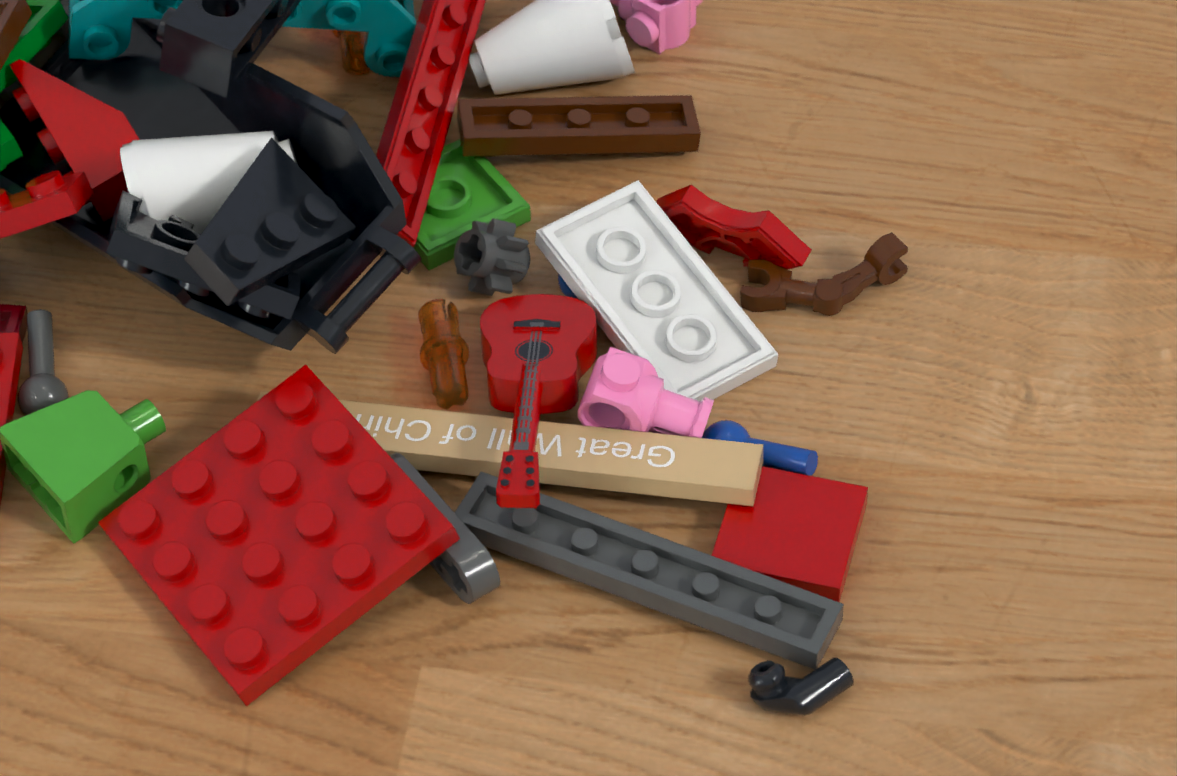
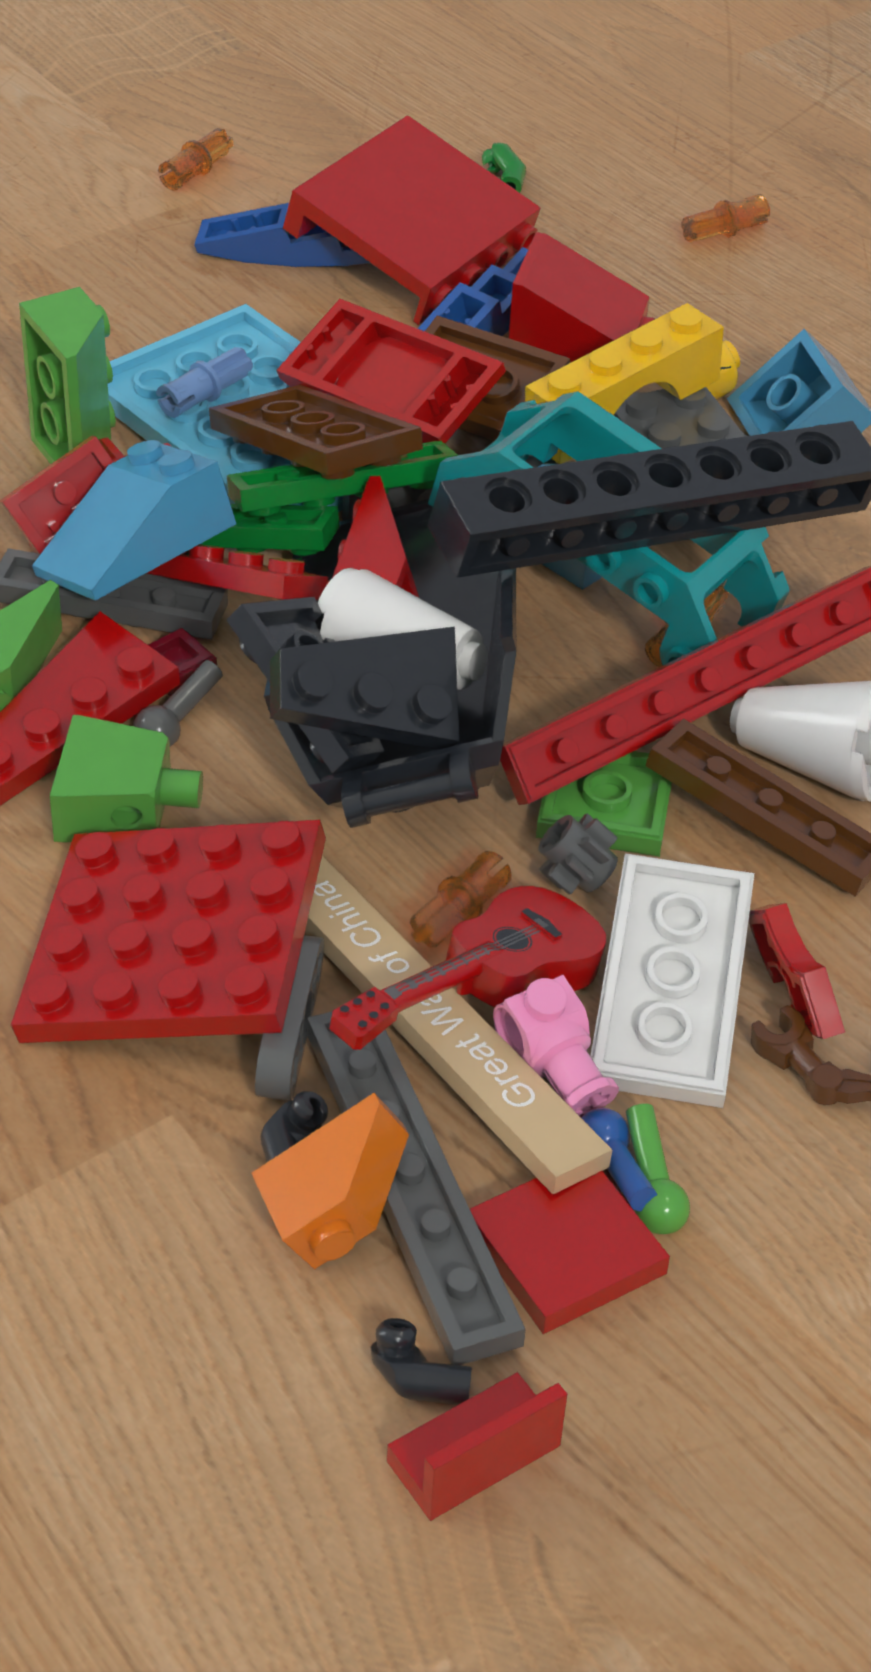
camera: 40 degrees right, 5 degrees down
(528, 611) = (293, 1123): none -> black arm
(618, 614) = (334, 1181): none -> orange slope
(770, 428) = (671, 1206): none -> bright green bar
(888, 702) = (478, 1443): none -> red panel

